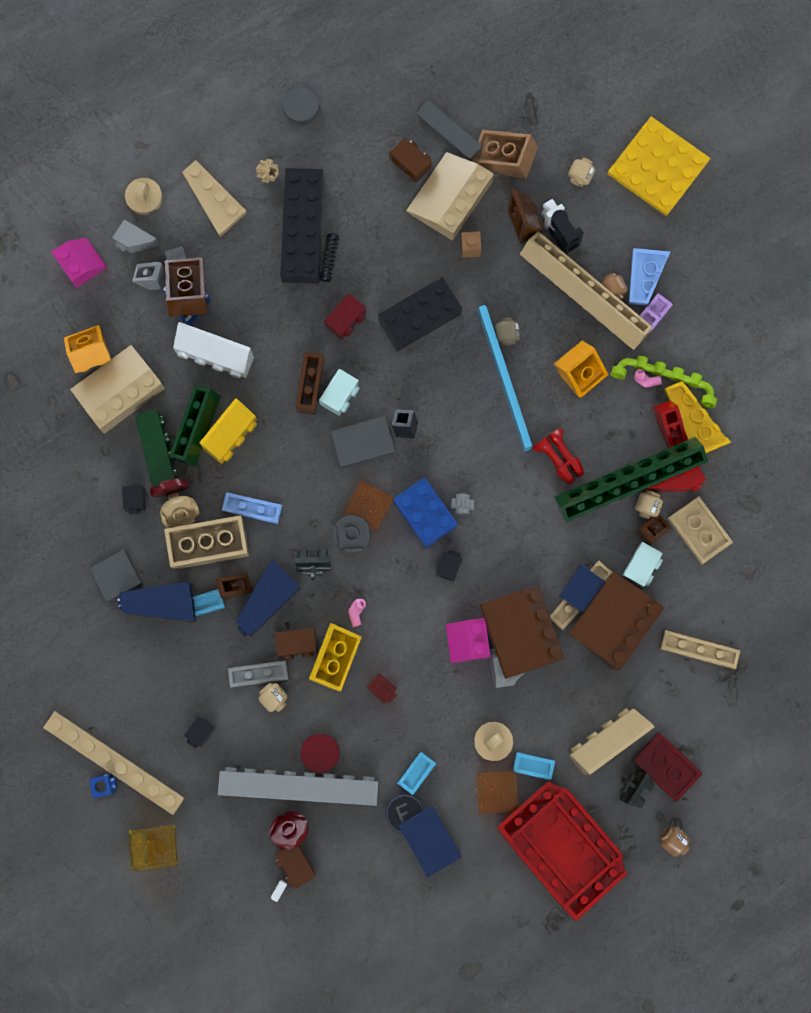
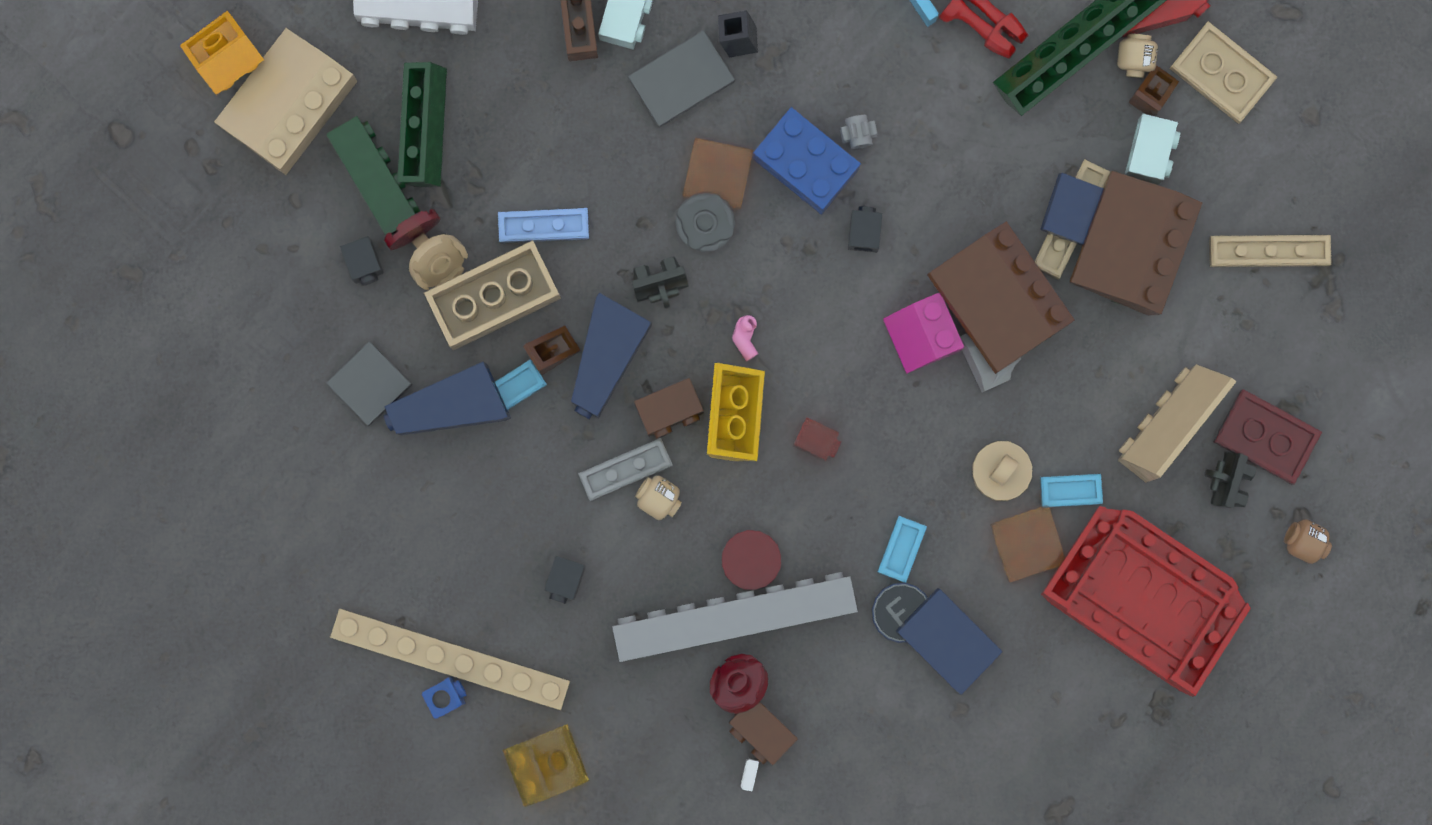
camera: 15 degrees left, 5 degrees up
(229, 431) = (476, 119): yellow slope -> none

